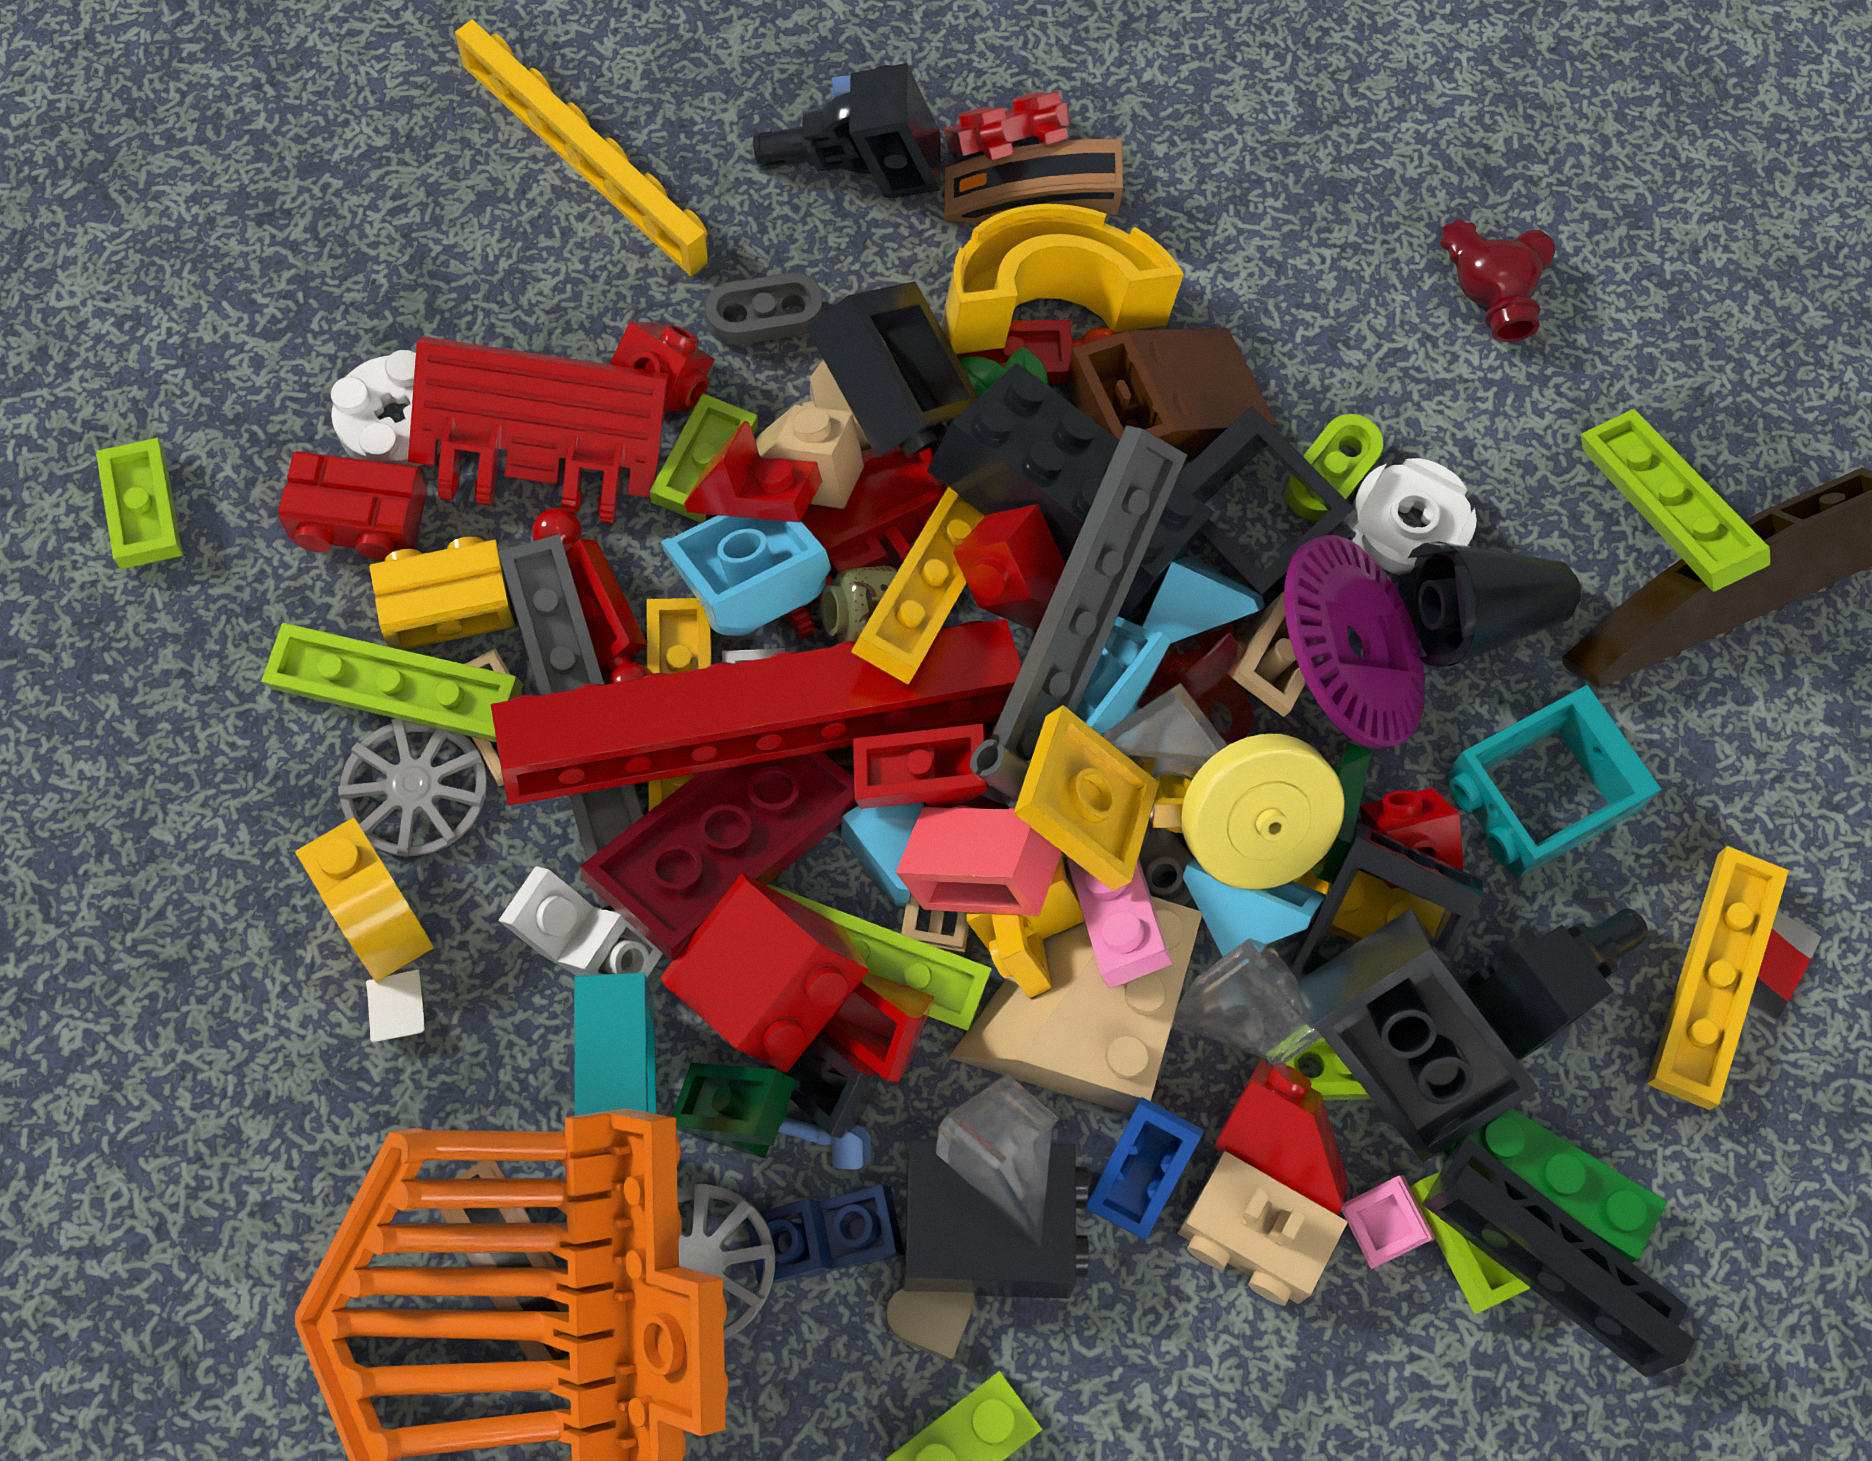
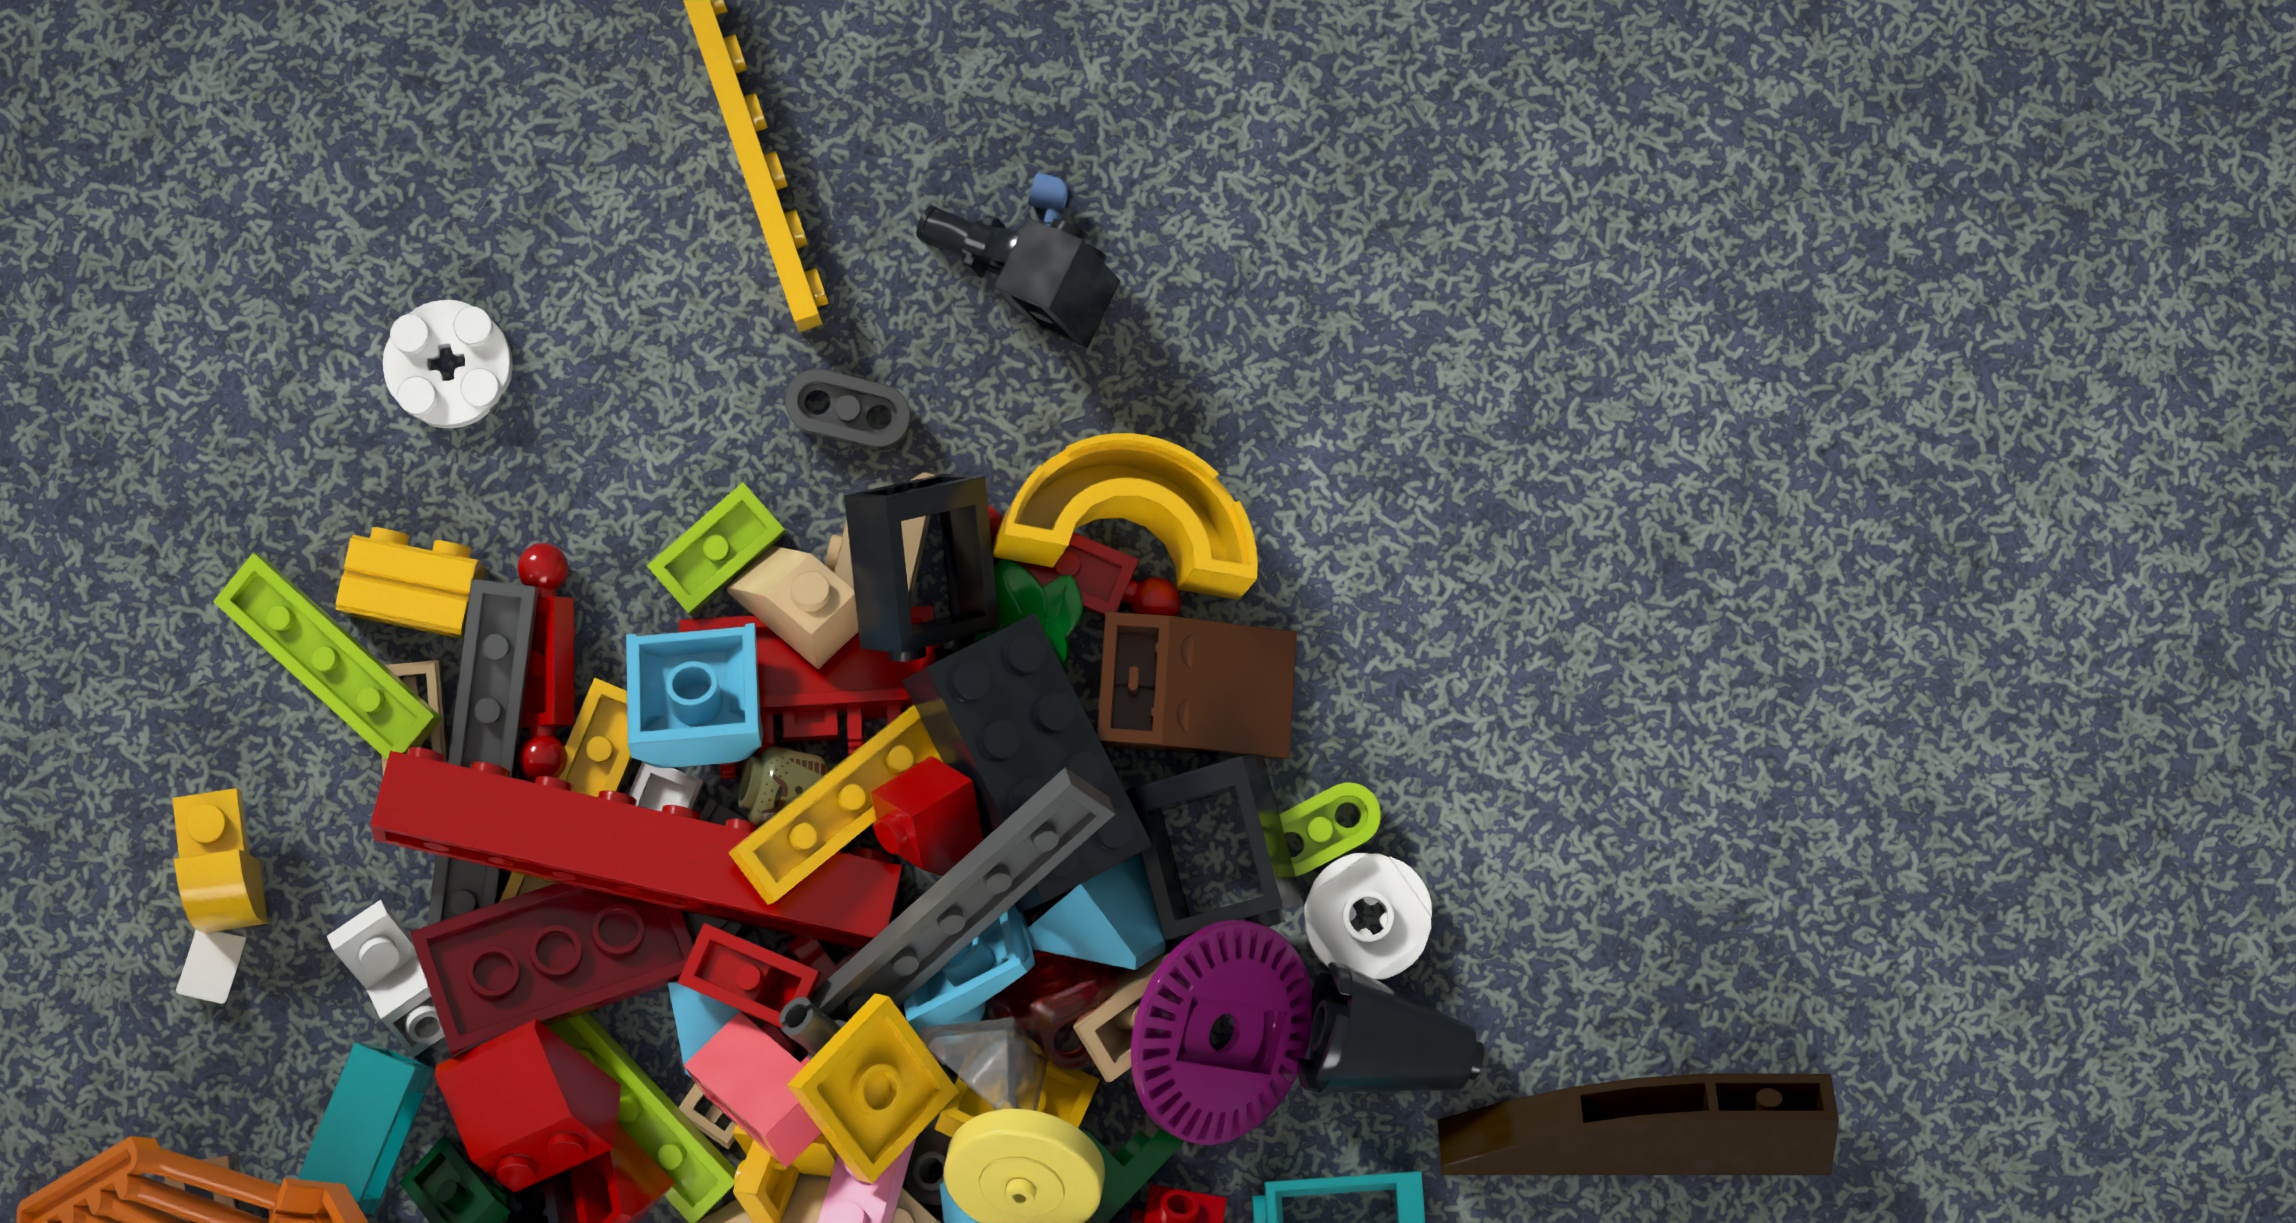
camera: 30 degrees right, 15 degrees up
(139, 503) = (172, 361): lime plate -> none
(352, 504) = (366, 454): red brick -> none
(412, 786) = (307, 764): light grey wheel -> none
(538, 413) = (572, 450): red hinge -> none
(667, 351) = (713, 440): red brick -> none
(751, 486) = (734, 620): red slope -> none
(996, 129) = (1207, 309): red plate -> none
(1063, 172) = (1181, 387): medium nougat slope -> none
(1500, 275) = (1603, 696): dark red animal -> none
(1675, 500) = (1613, 1026): lime plate -> none

